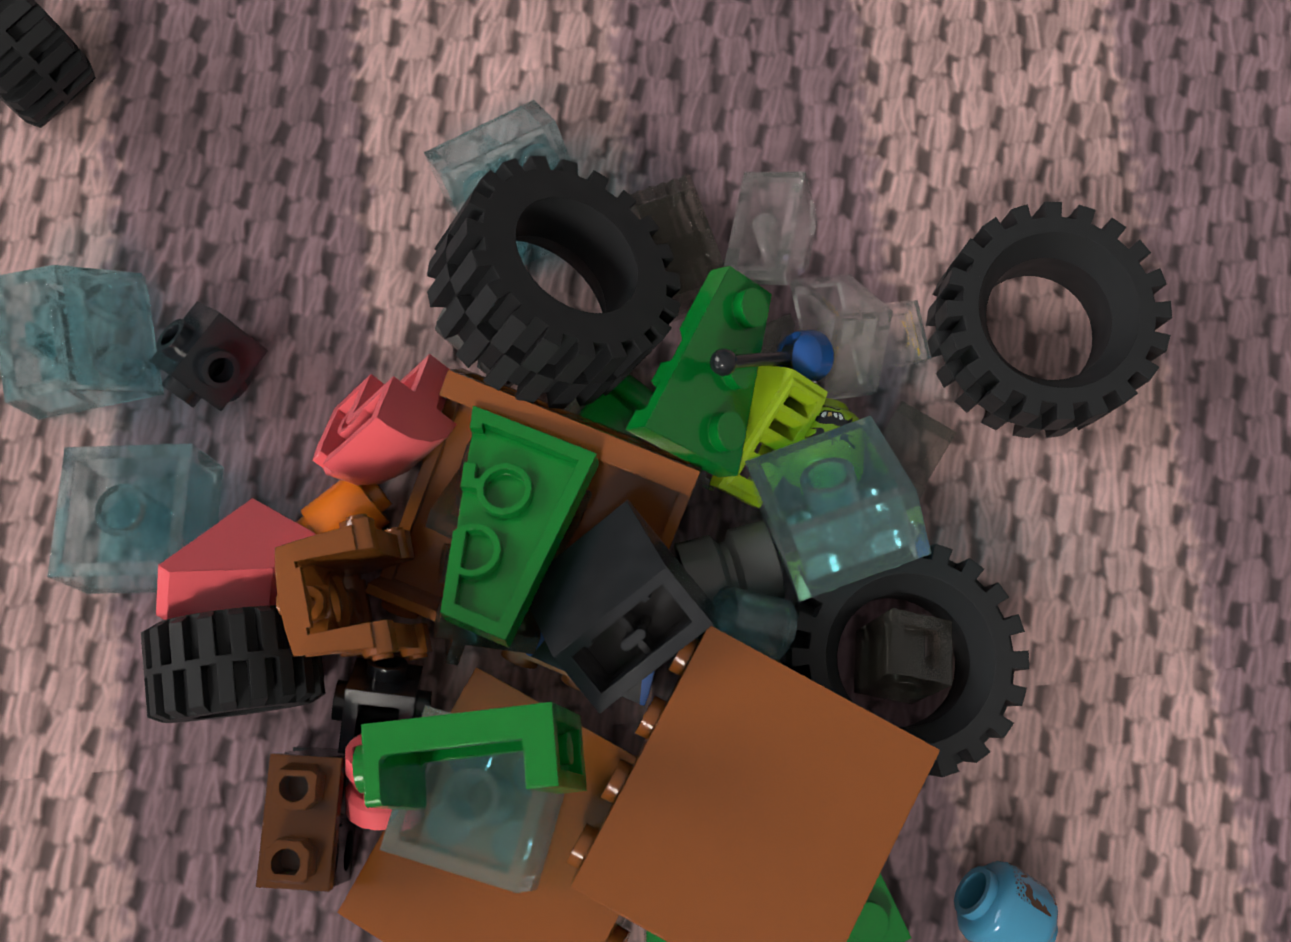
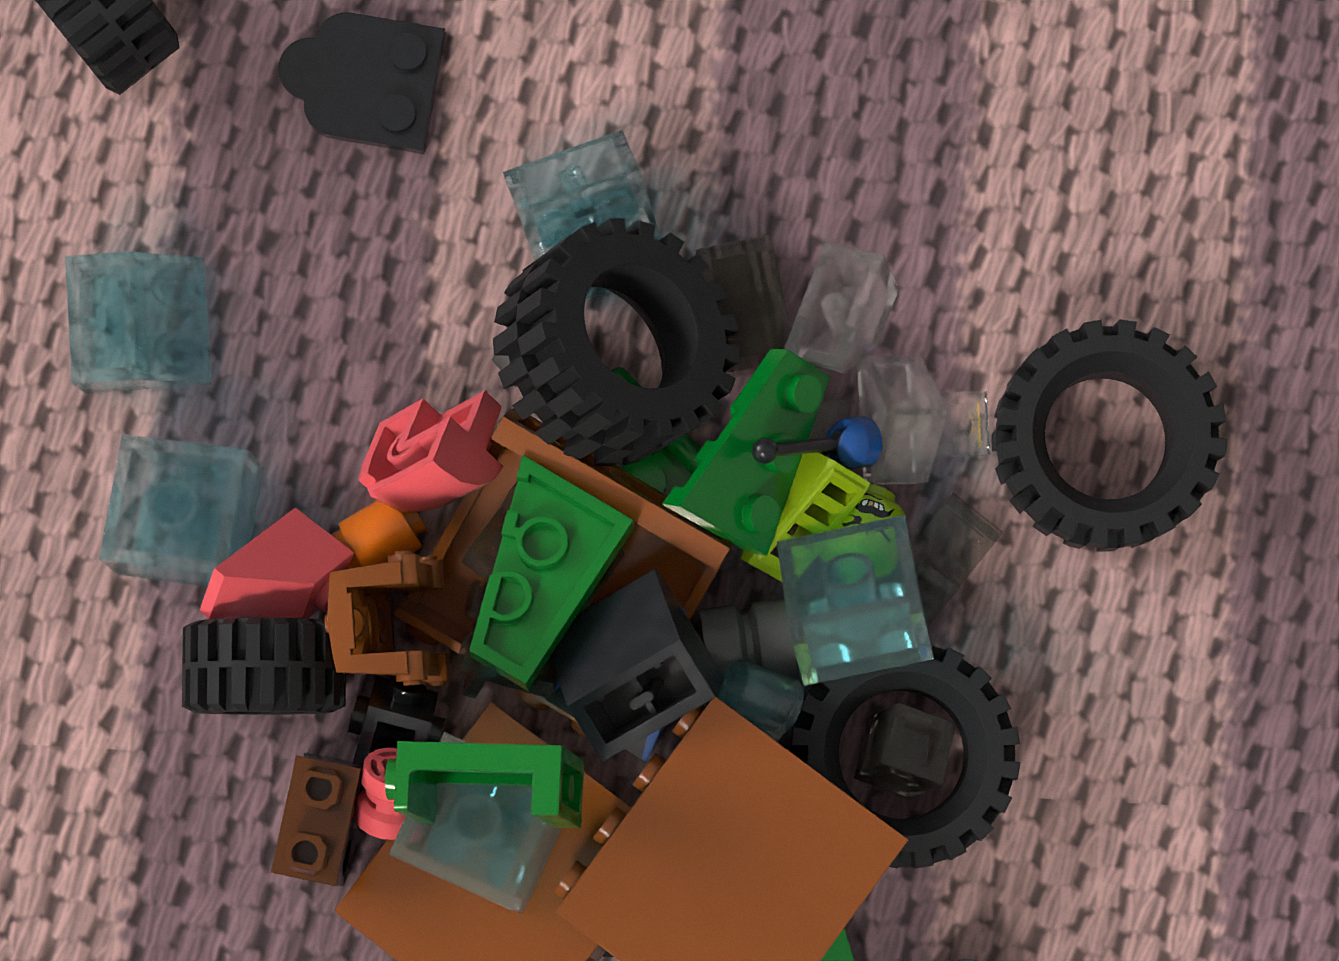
camera: 15 degrees right, 5 degrees up
(206, 357) = (262, 358): black brick -> none
(285, 92) = (367, 79): none -> black plate

